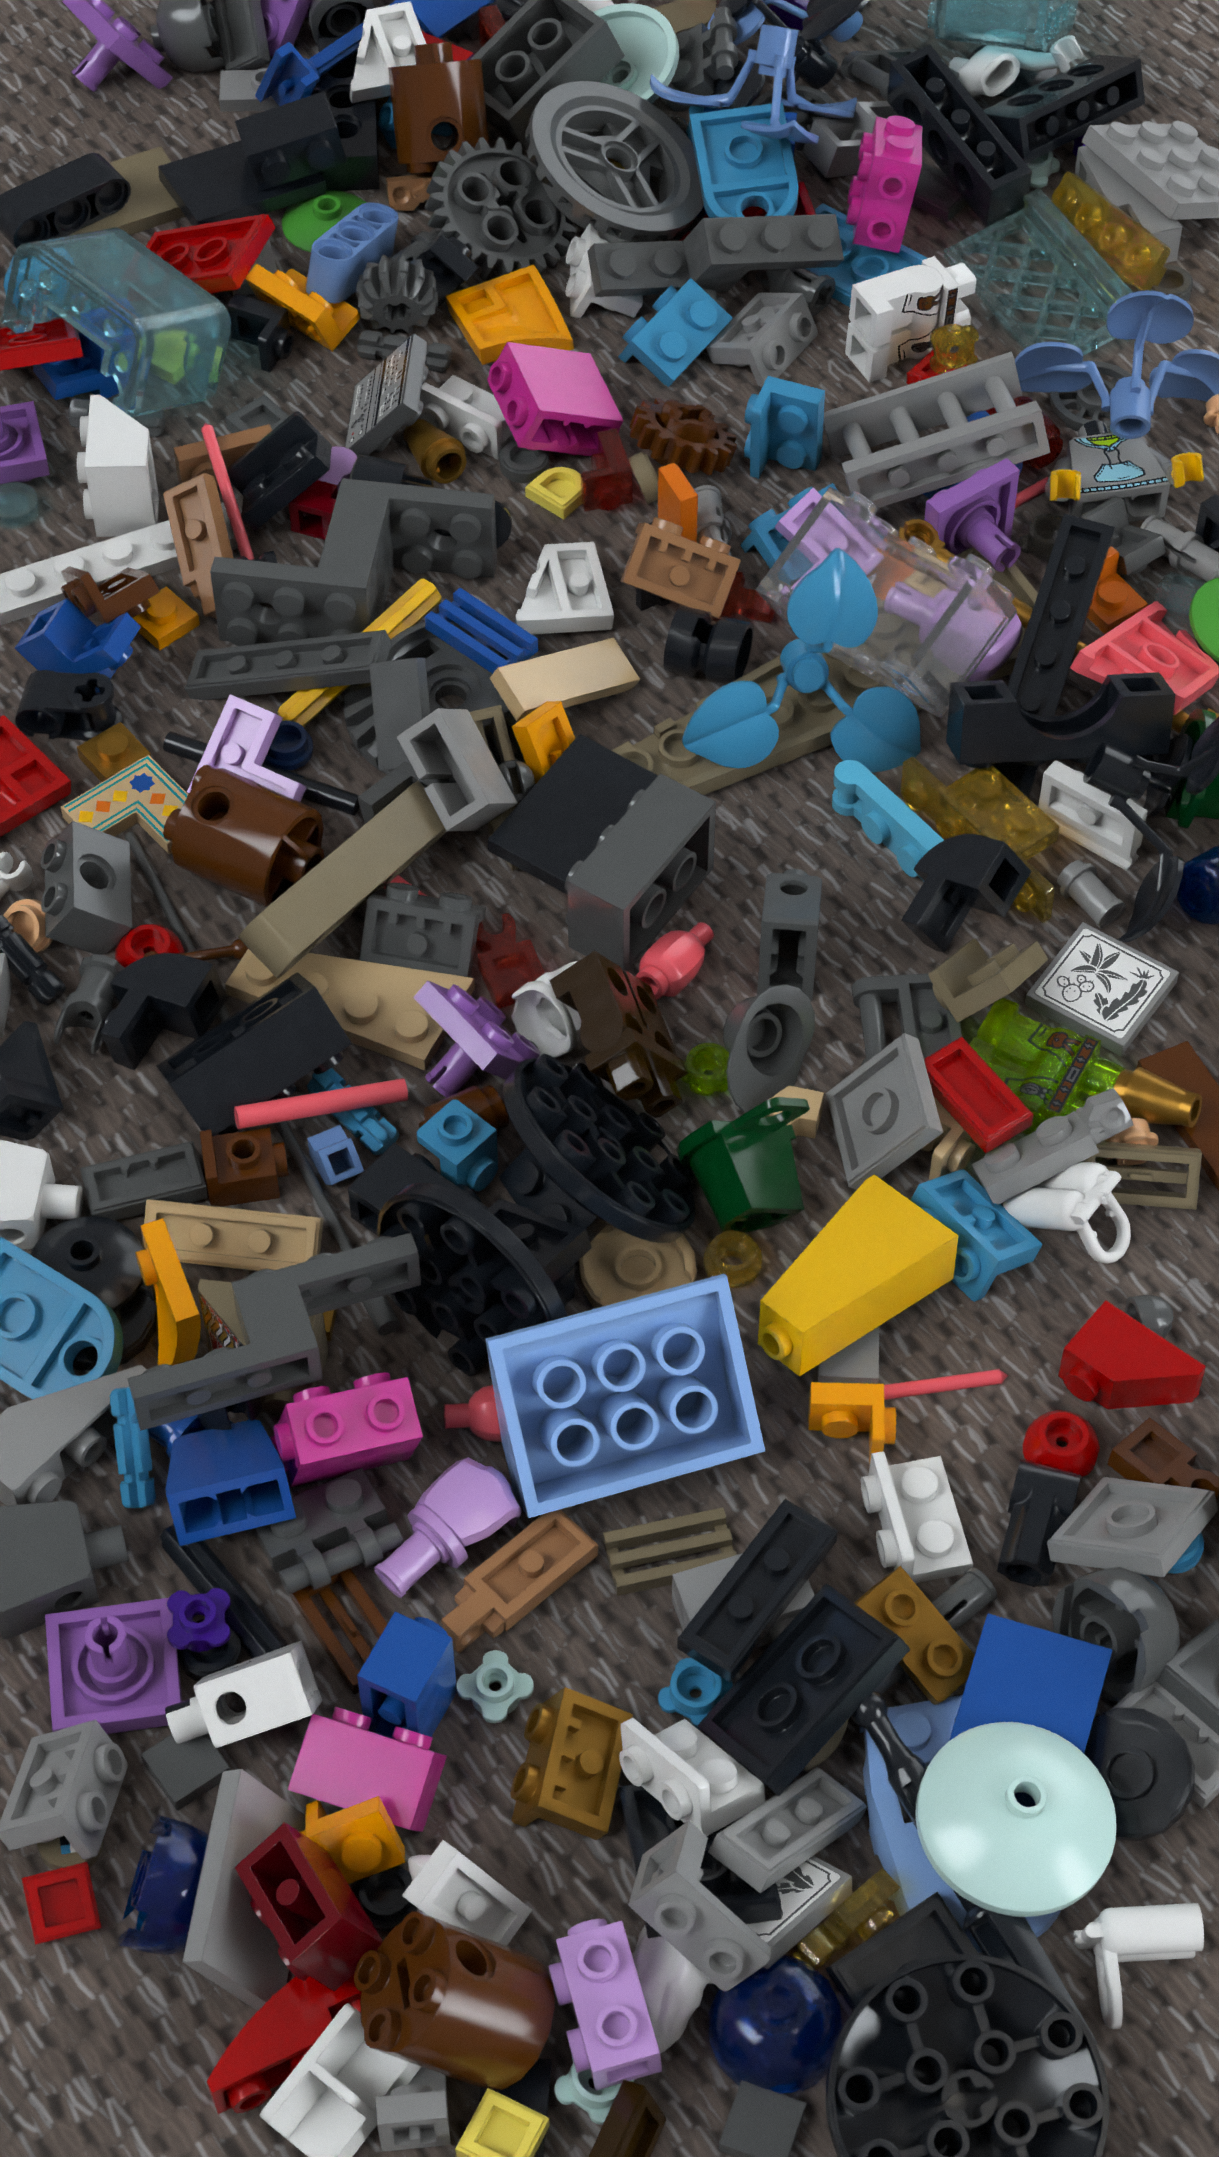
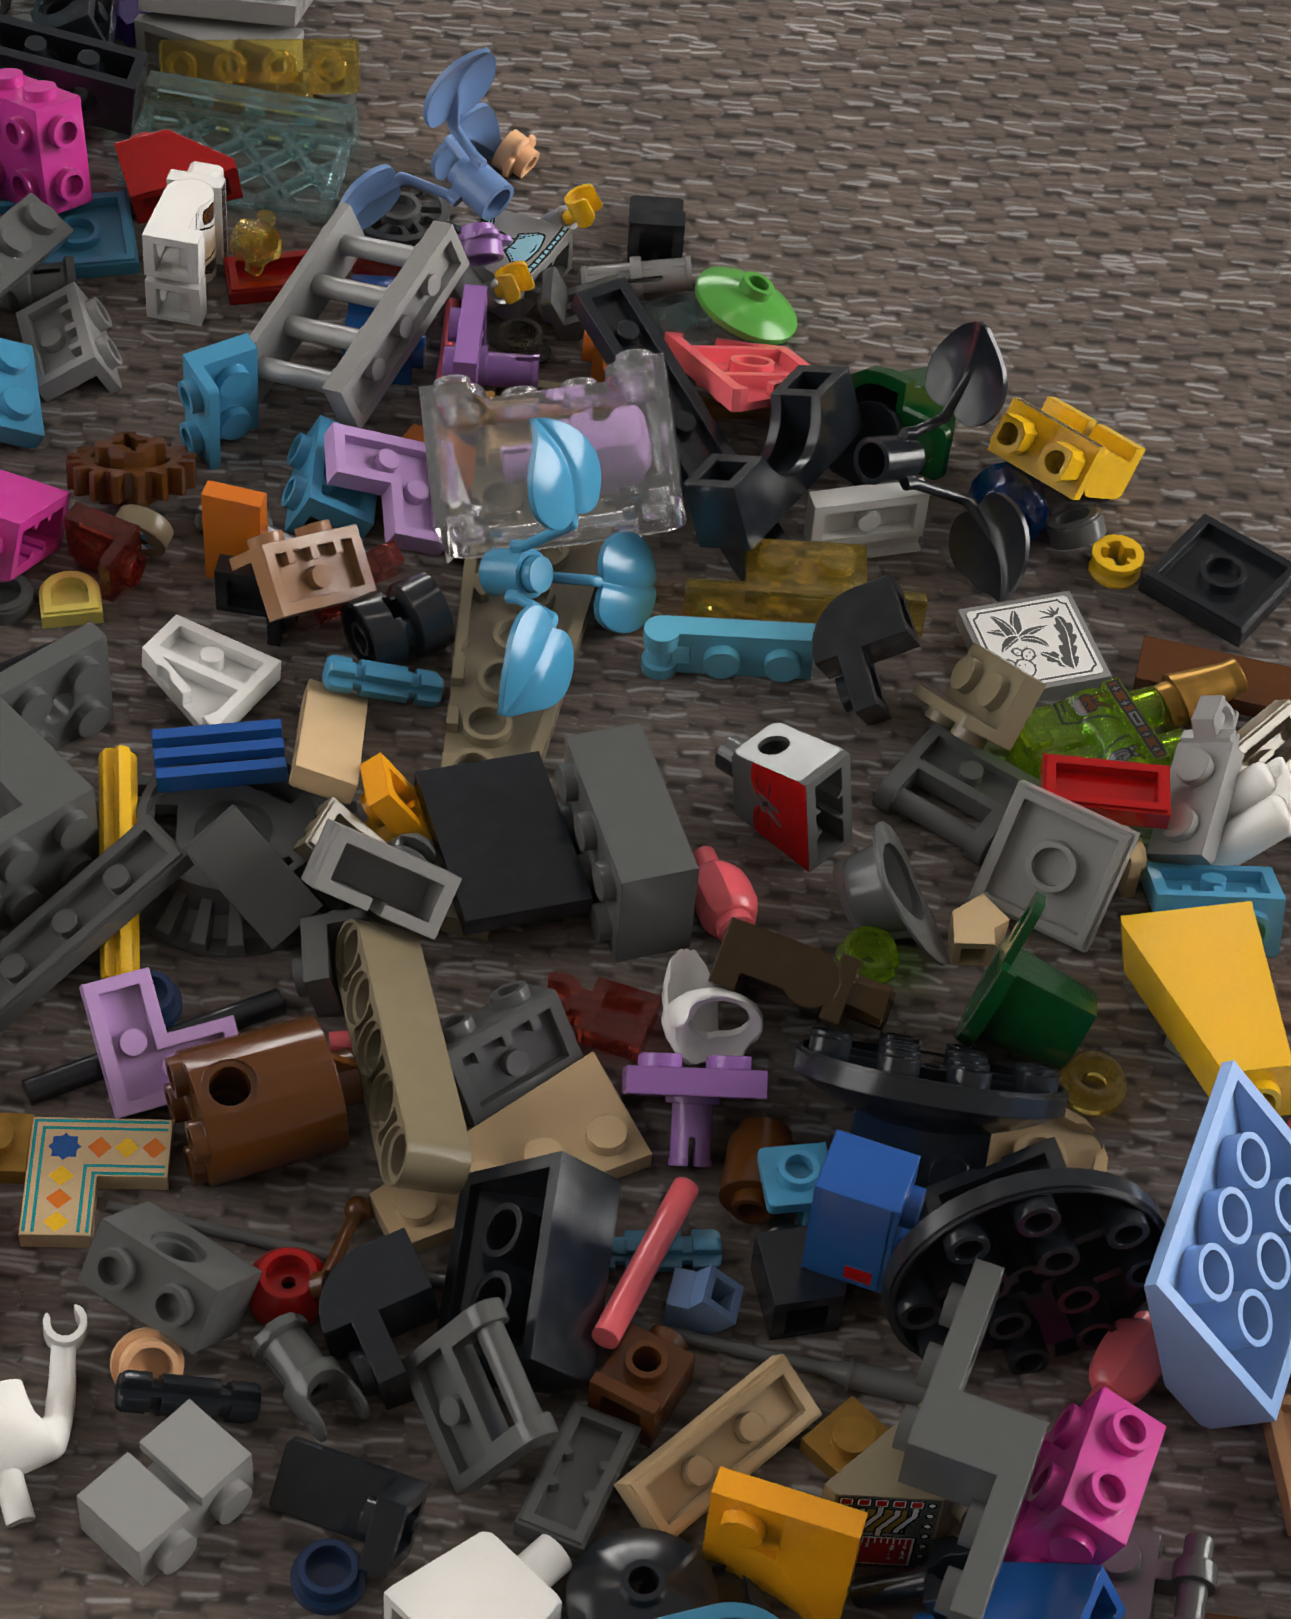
camera: 55 degrees left, 5 degrees down
(136, 1084) = (462, 1405): none -> dark grey plate
(425, 1148) = (861, 1209): none -> blue brick
(454, 1512) = (1223, 1488): lavender piece -> none
(654, 673) = (382, 681): none -> dark azure axle
(966, 244) = (150, 157): none -> red slope
(1074, 444) = (483, 243): none -> medium lavender plate
(1088, 891) = (939, 584): light grey pin -> none

